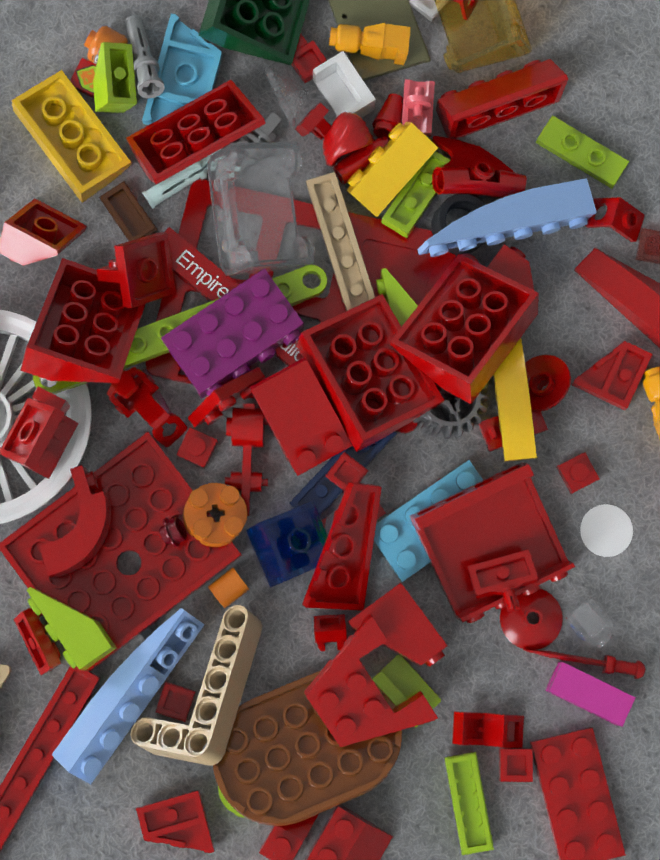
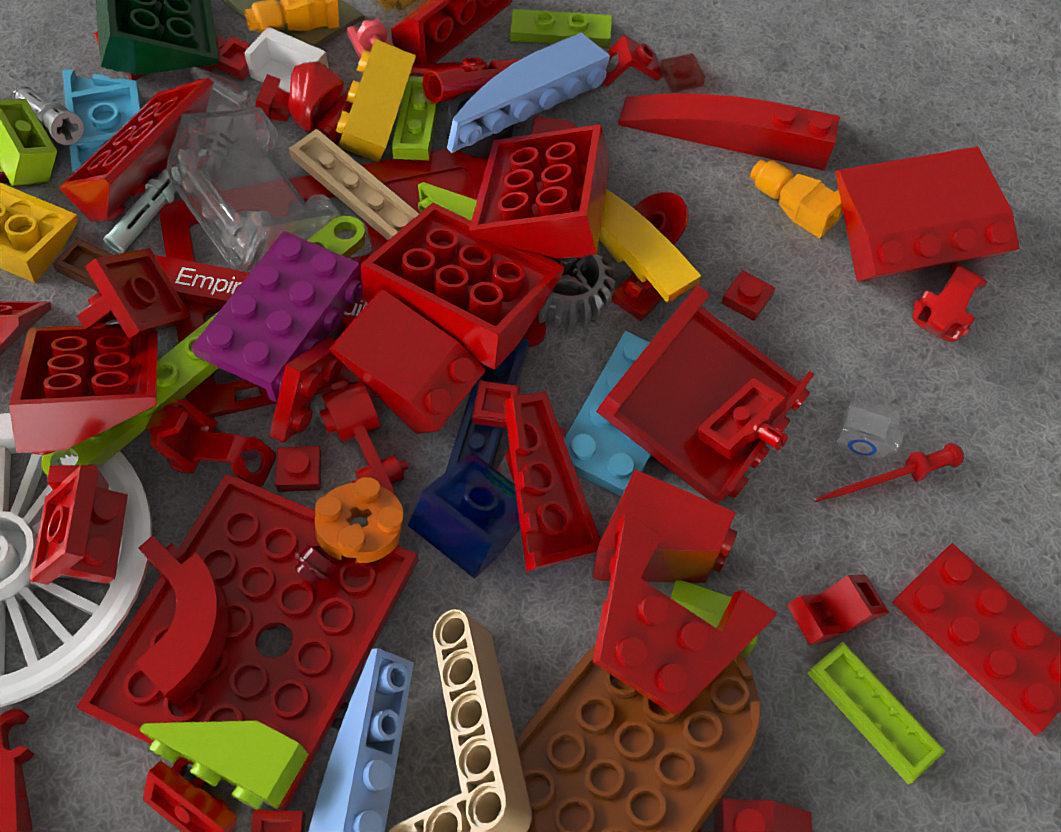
camera: 30 degrees left, 20 degrees down
(175, 701) = (423, 787): red tile -> none
(228, 588) = (422, 605): orange piece -> none
(330, 629) = (575, 589): red tile -> none
(388, 116) = (347, 65): red cone -> none
(515, 765) = (897, 633): red plate -> none
(532, 636) = (800, 480): red dish -> none
(590, 694) = (923, 505): dark pink piece -> none
(606, 530) = (816, 338): white sticker -> none
(615, 375) = (724, 189): red wing -> none

